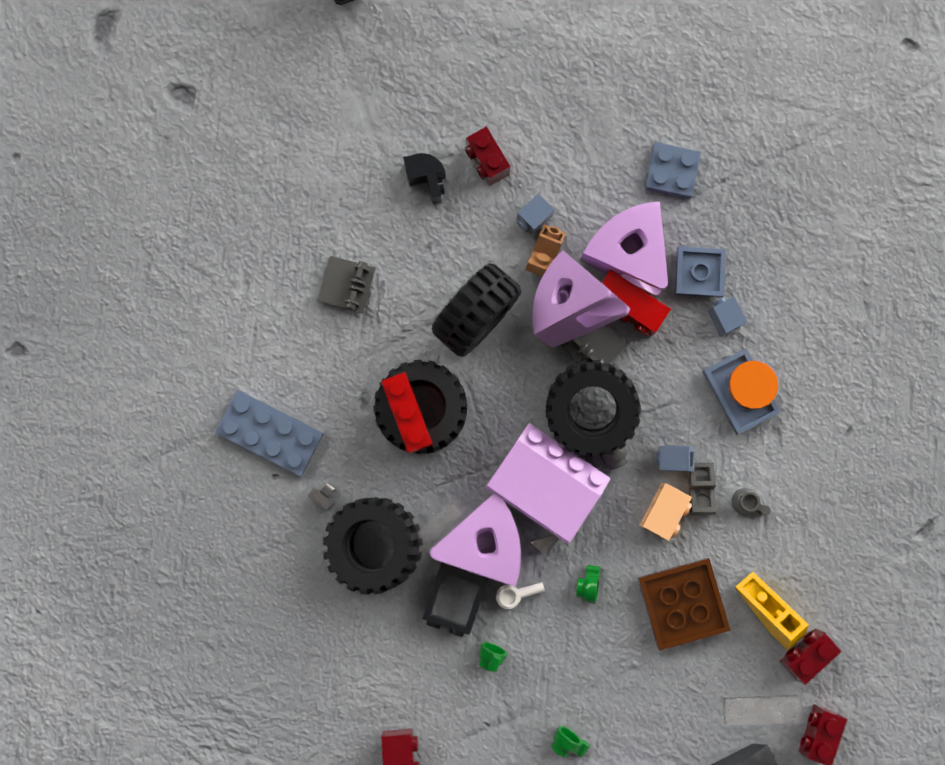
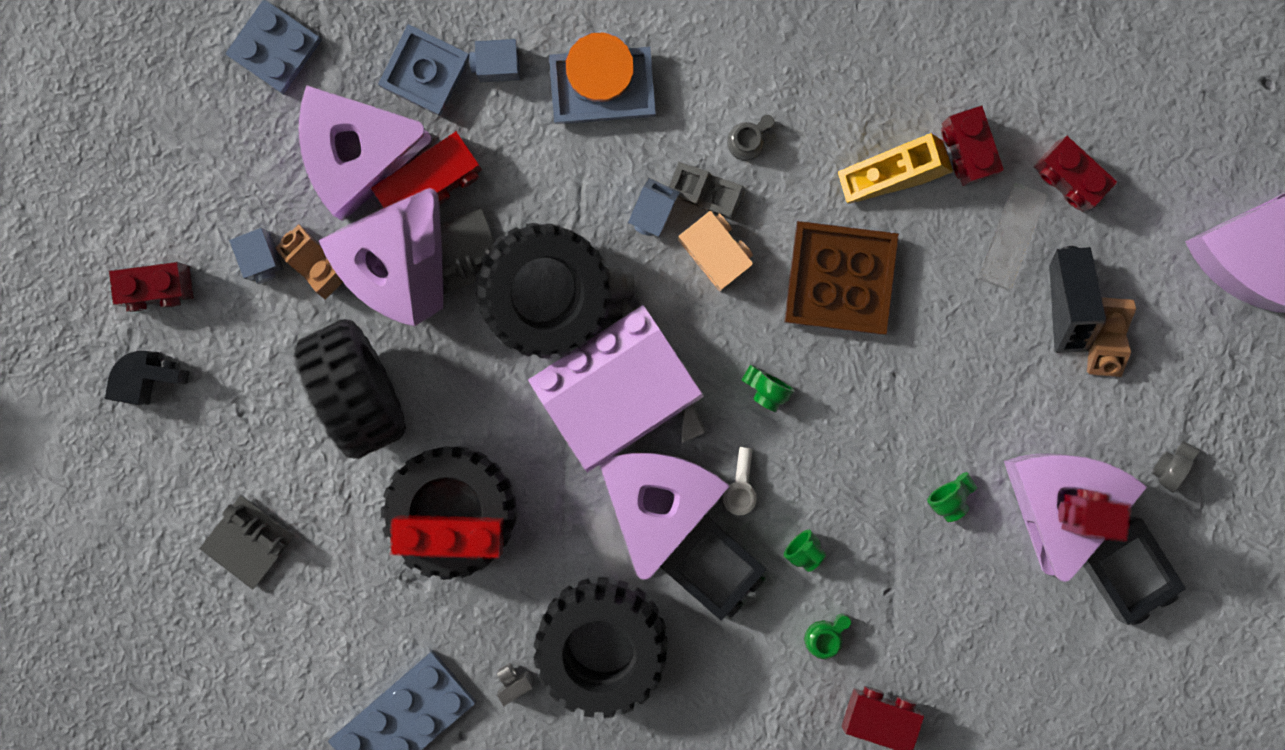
camera: 65 degrees left, 5 degrees up
(437, 694) = (825, 638): none -> green piece

